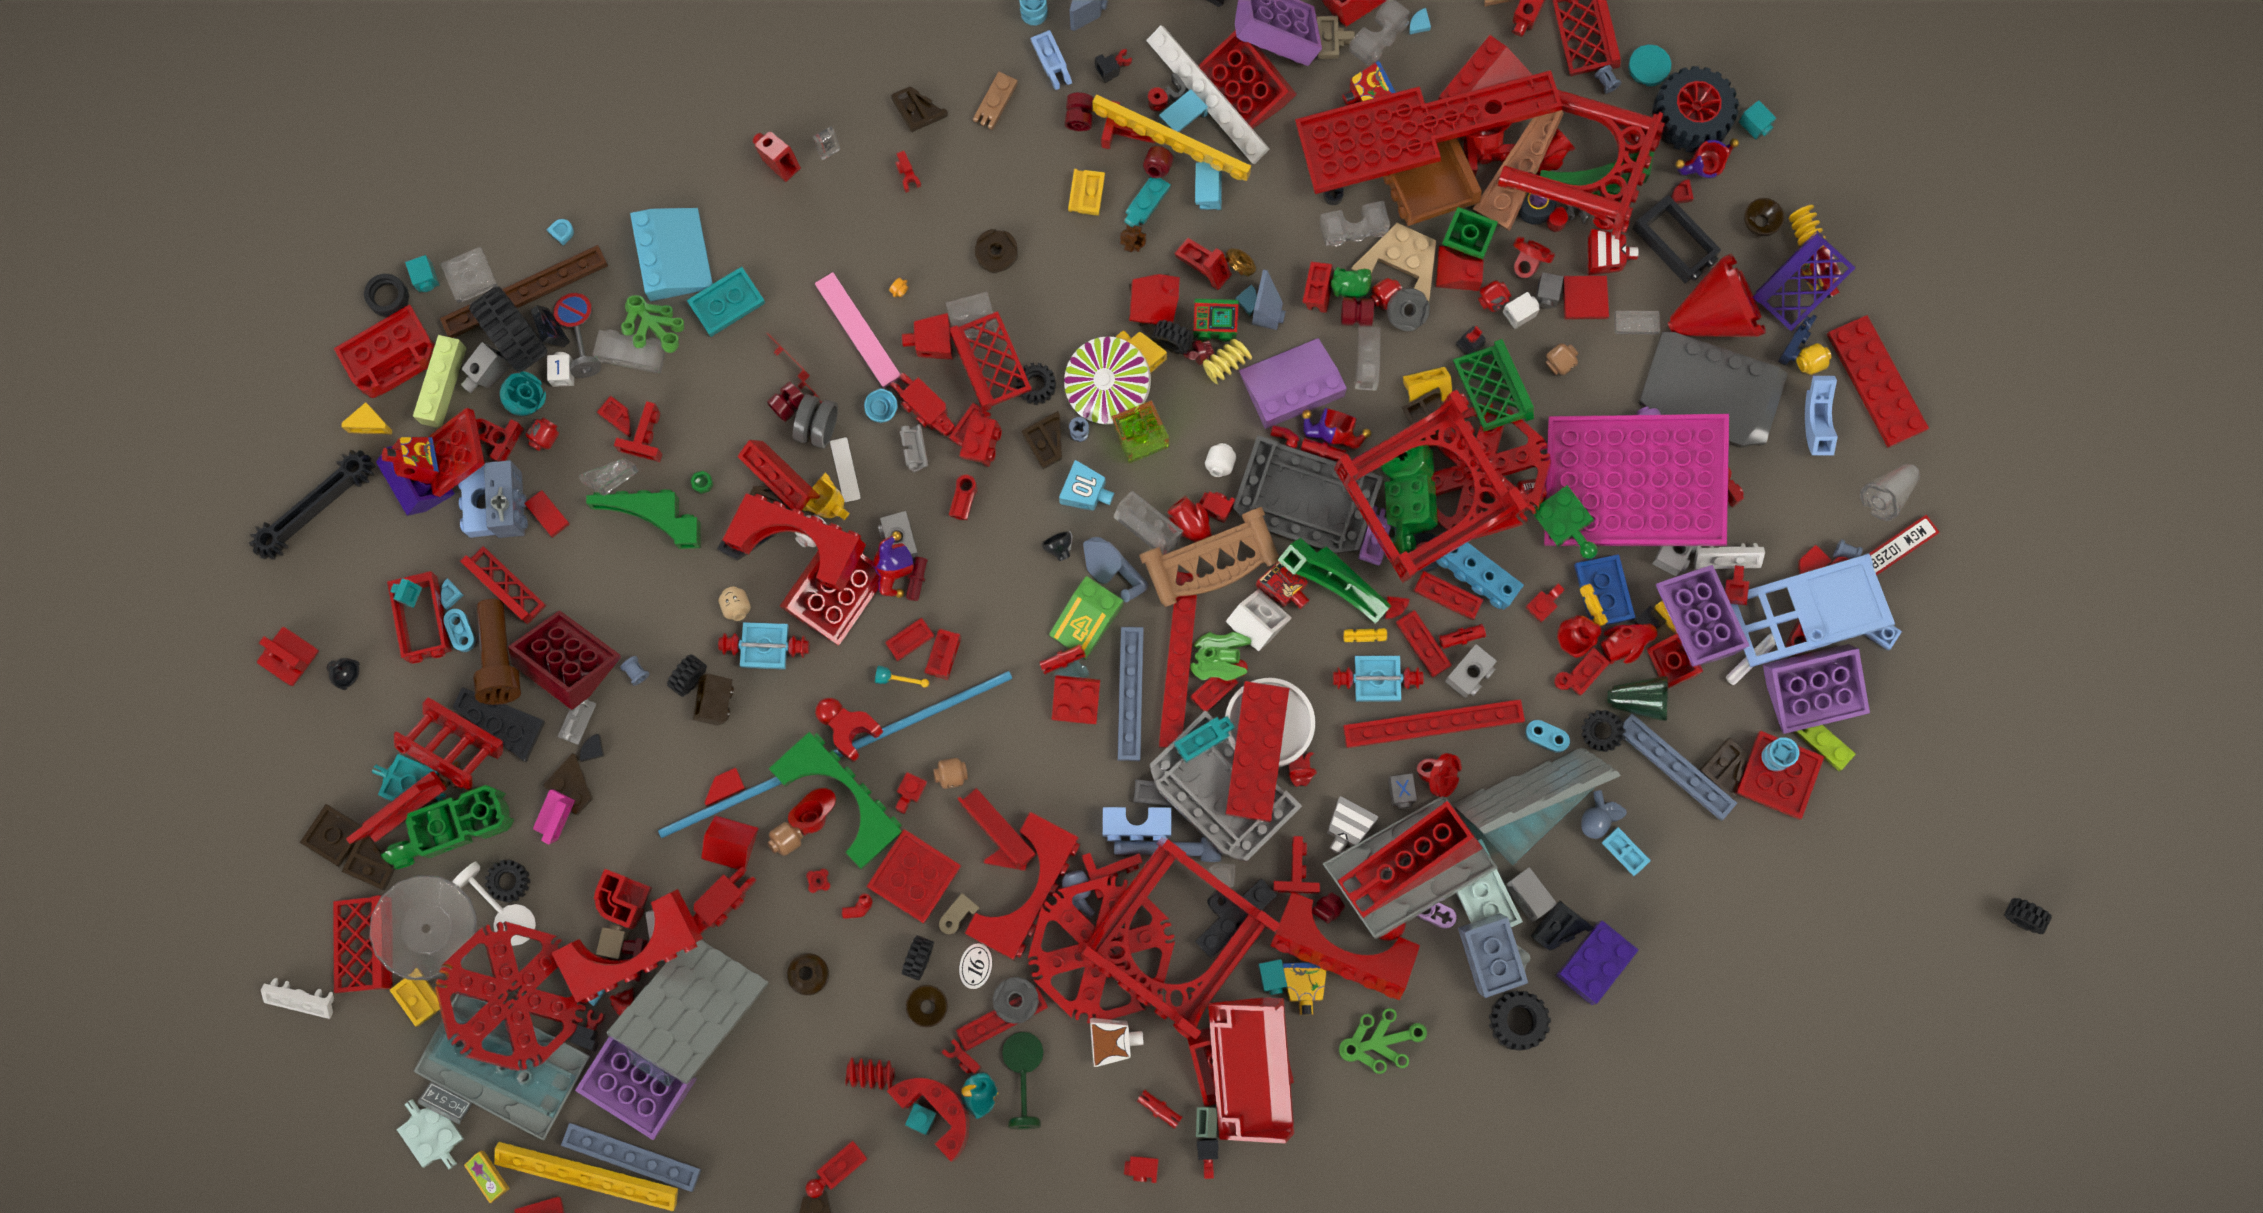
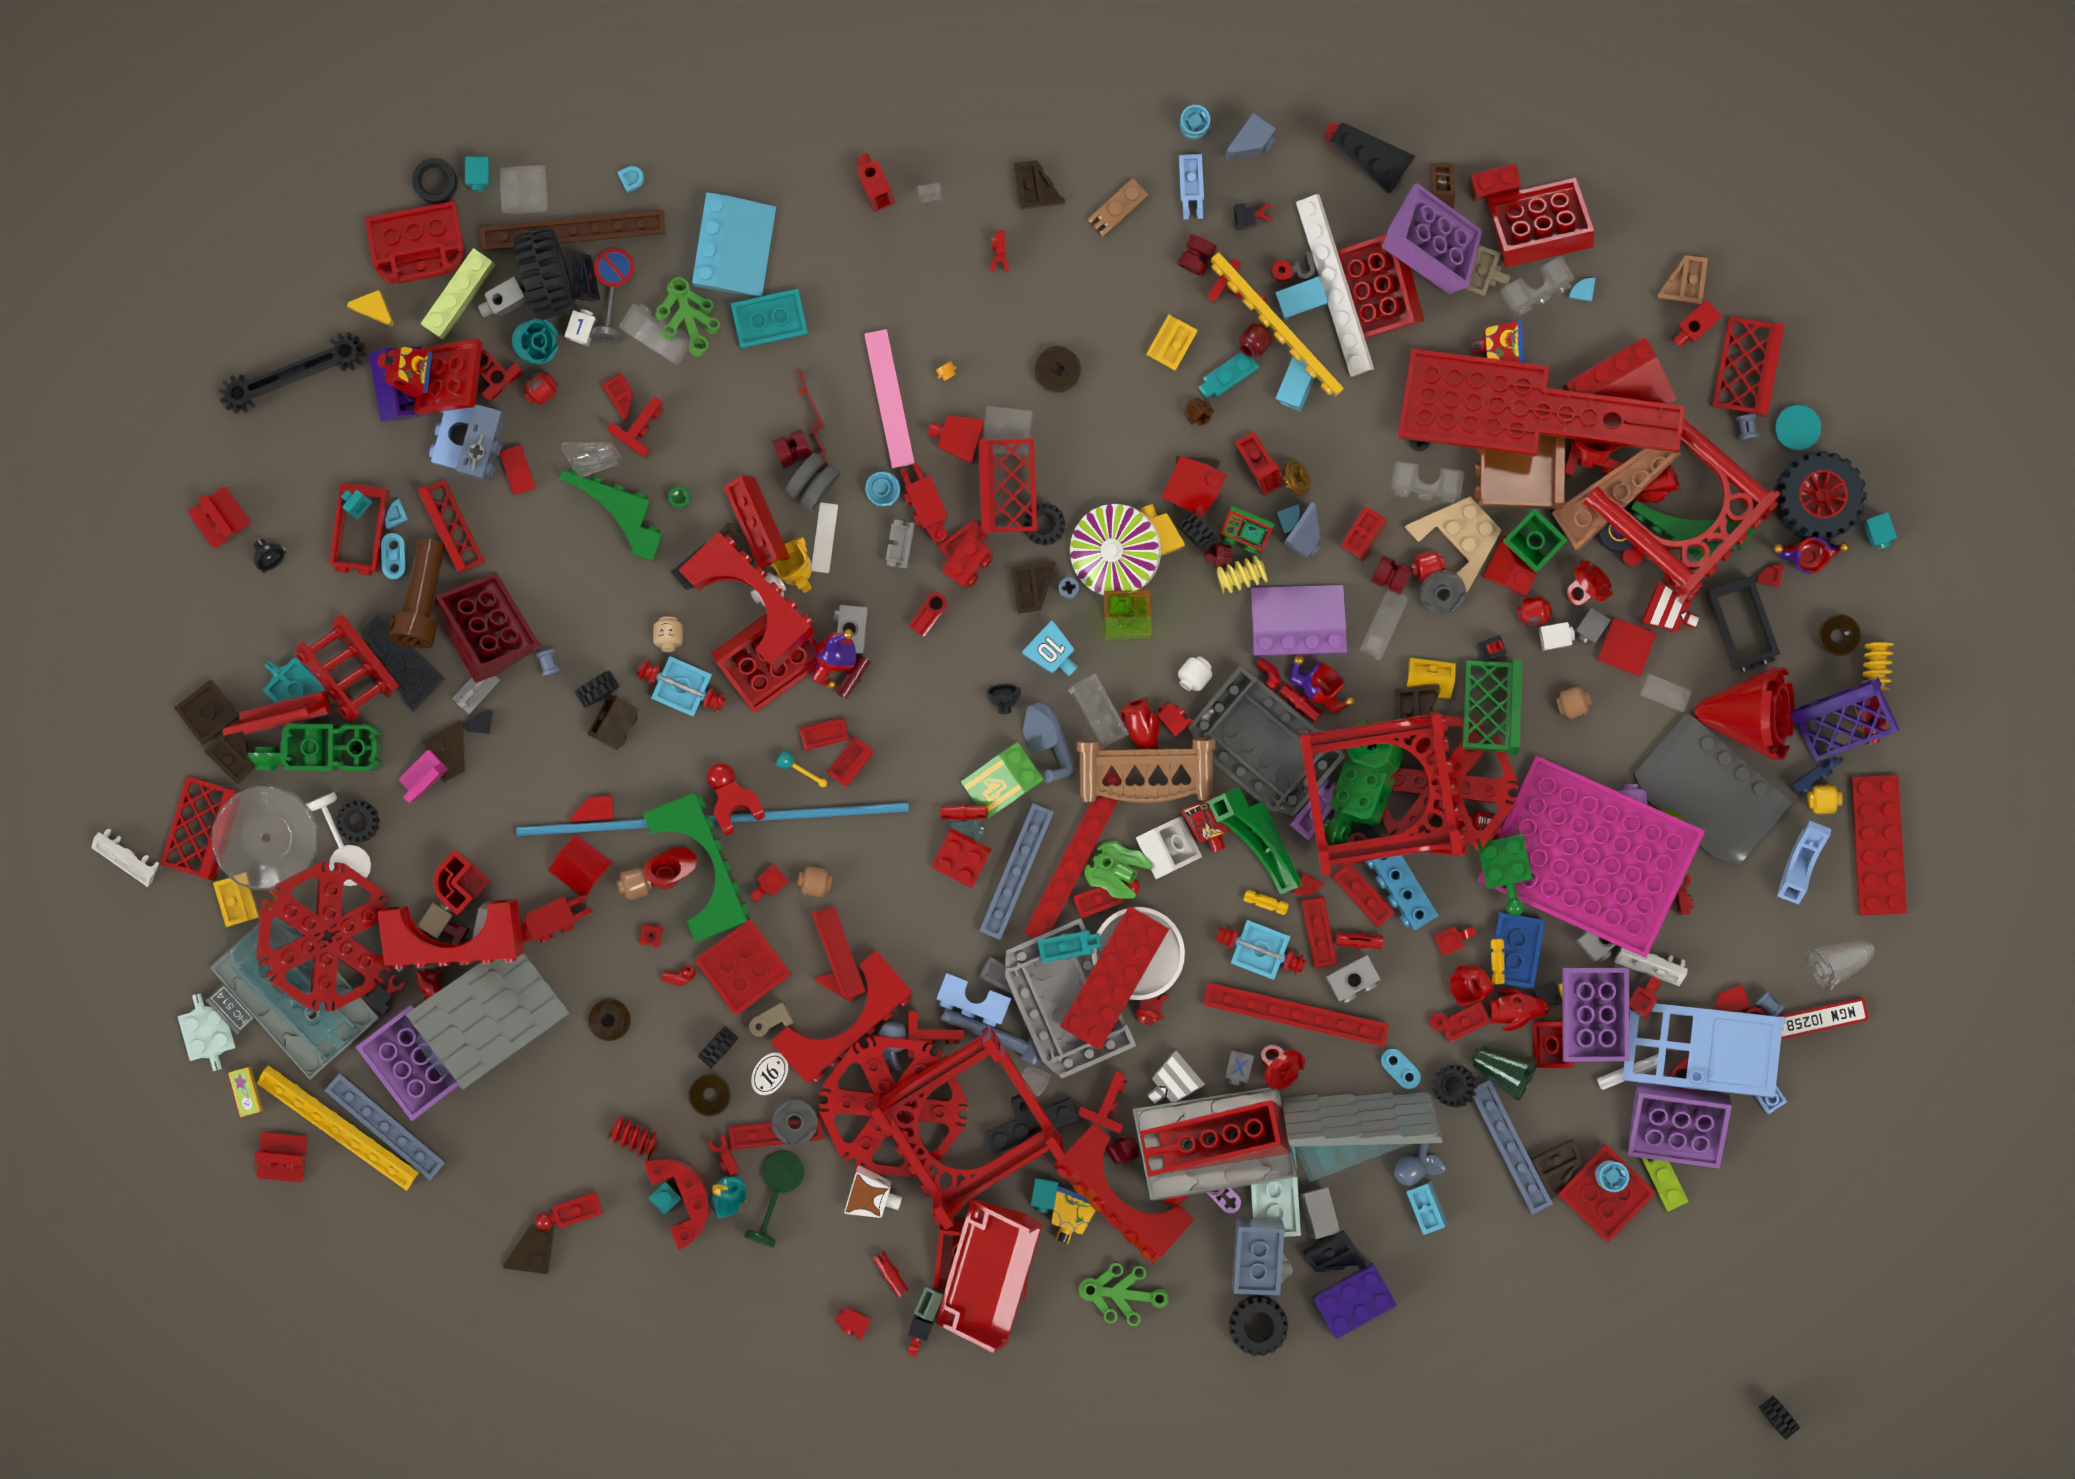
camera: 20 degrees right, 10 degrees up
(1351, 283) = (1397, 544): green hair -> none

